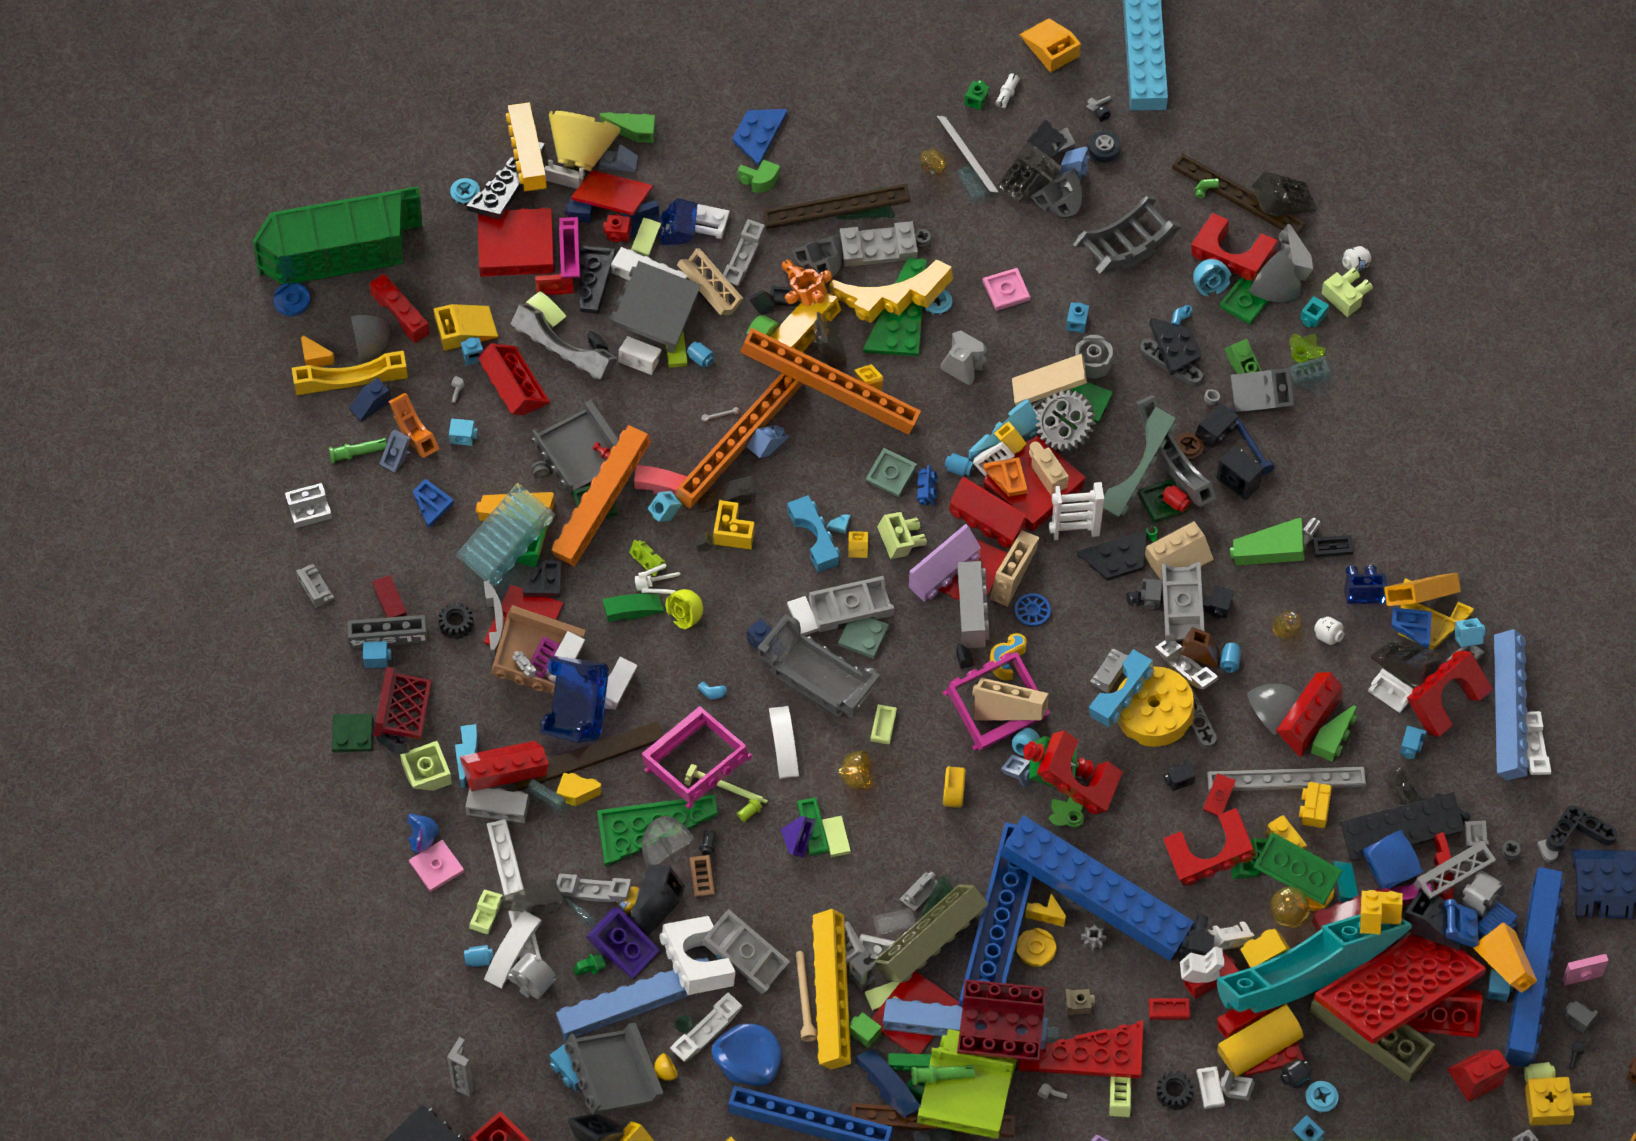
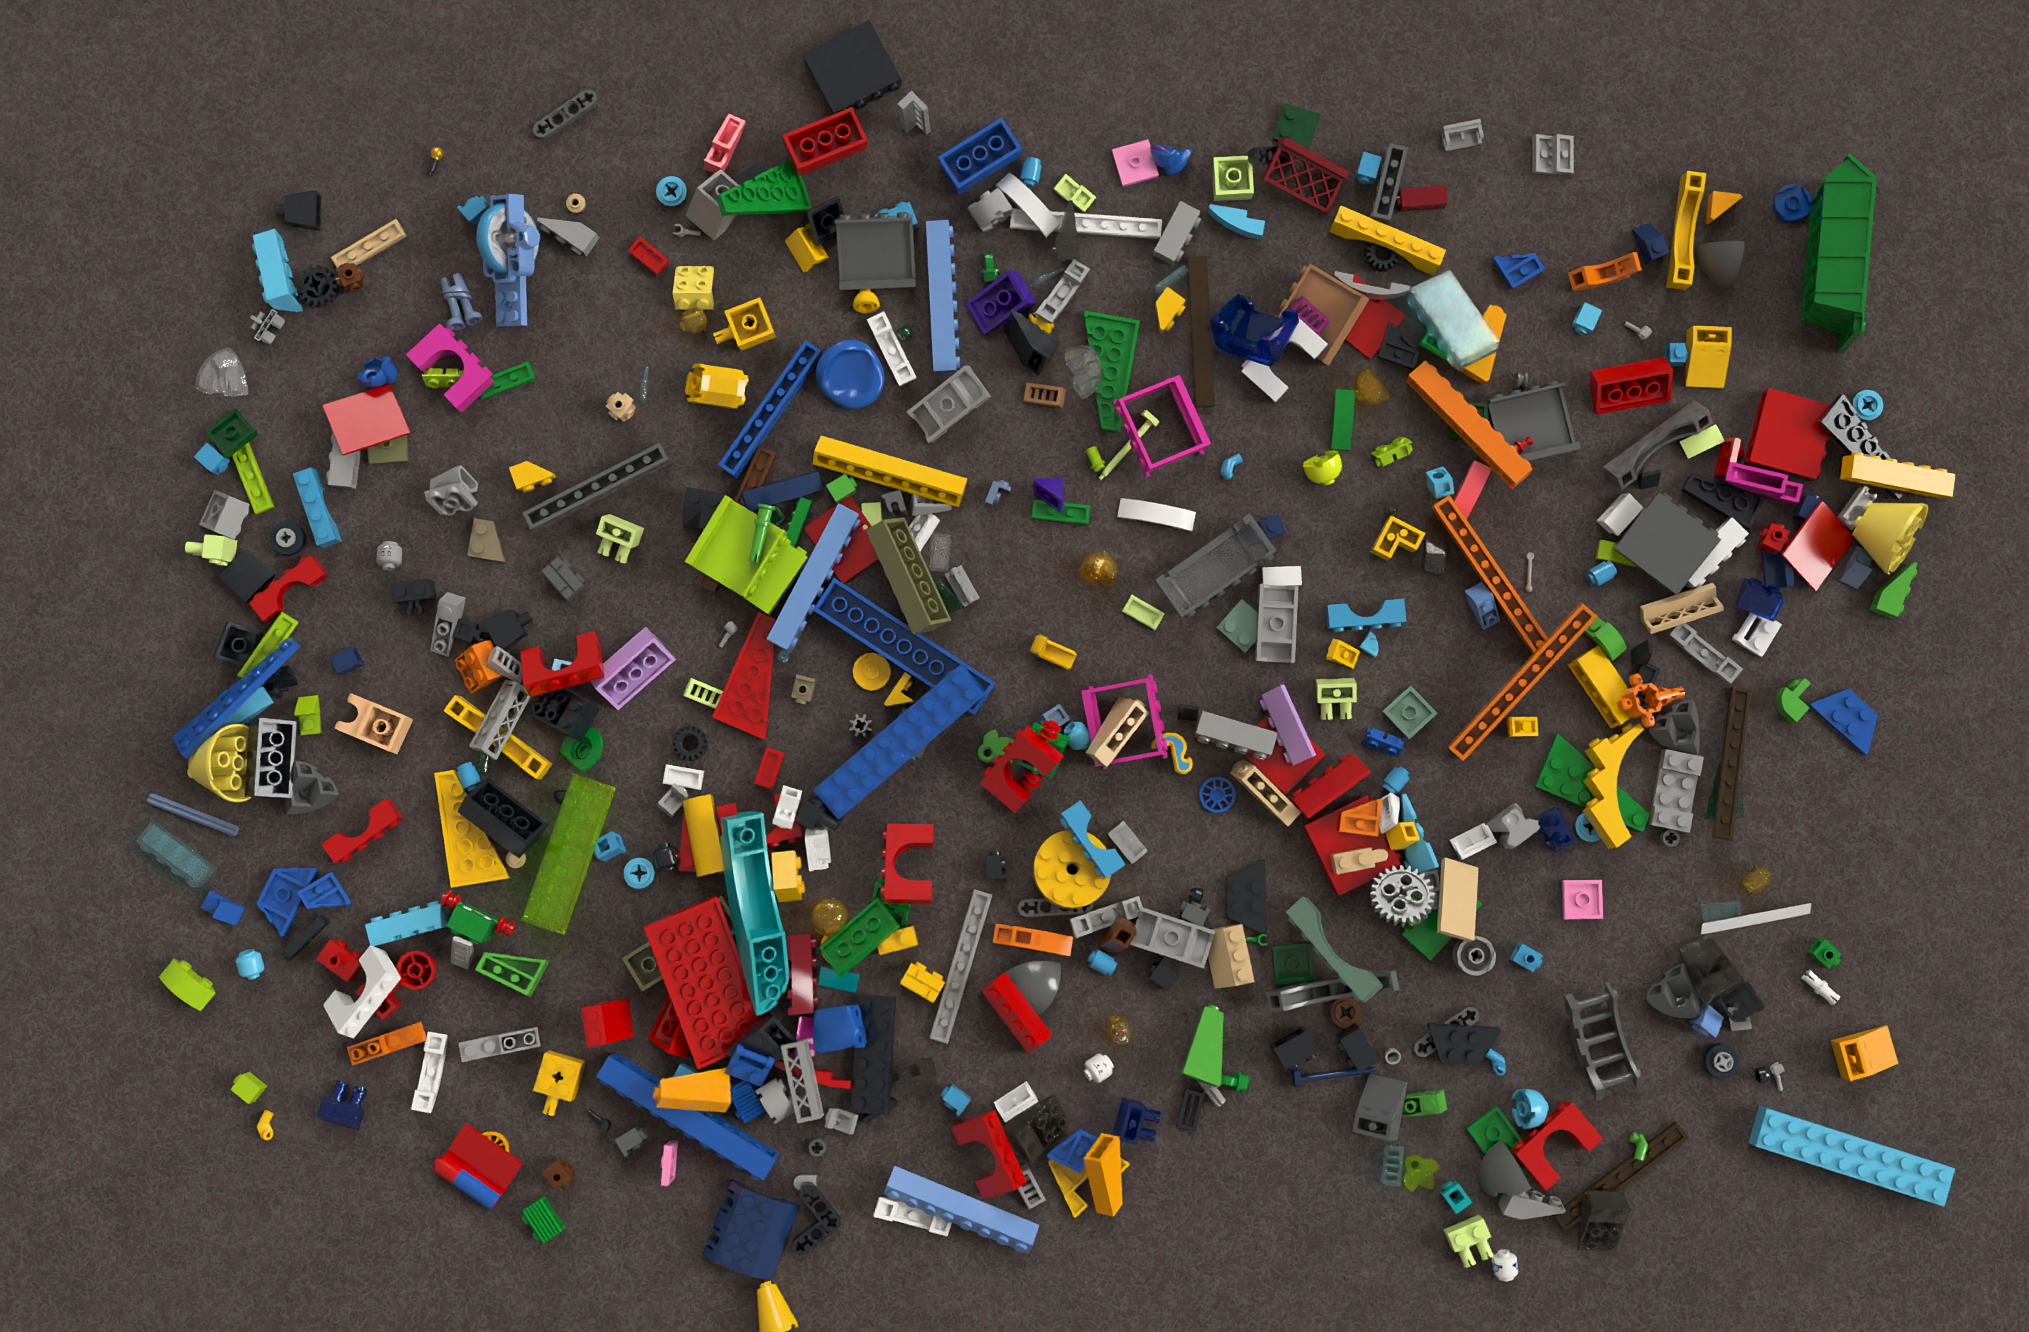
camera: 110 degrees right, 25 degrees up
(349, 451) = (1599, 206): bright green pin -> none
(395, 451) = (1584, 249): sand blue slope -> none
(409, 318) = (1746, 298): red arch -> none
(446, 587) = (1418, 252): none -> yellow arch
(479, 1005) = (980, 156): none -> blue brick
(504, 765) = (1211, 246): red slope -> none
(524, 664) = (1306, 294): light grey axle -> none
(594, 590) = (1370, 388): none -> clear yellow cylinder
(643, 581) = (1364, 439): white plant -> none
(646, 237) = (1756, 564): yellowish green tile -> none
(695, 975) = (933, 349): white arch -> none
(707, 846) = (1074, 411): black pin -> none
(808, 1031) = (859, 439): tan piece -> none
(816, 889) = (994, 495): none -> sand blue bracket
(828, 343) = (1568, 699): clear smoke slope -> none
(836, 836) = (1043, 529): yellowish green tile -> none
(954, 320) = (1555, 830): none -> clear blue brick
(990, 388) = (1473, 841): none -> white hinge
(1002, 1011) = (774, 596): dark red slope -> none
(1093, 516) = (1296, 868): white fence -> none
(1176, 498) = (1286, 975): red brick -> none
(1219, 794) = (963, 895): red plate -> none
(1235, 722) = (1033, 939): none -> orange slope
(1289, 513) = (1238, 1081): none -> green piece
(1329, 738) = (986, 1023): bright green slope -> none
(1378, 909) = (781, 989): yellow brick -> none
(1469, 632) = (1050, 1202): medium azure brick -> none
(1539, 1070) = (589, 1081): yellowish green brick -> none

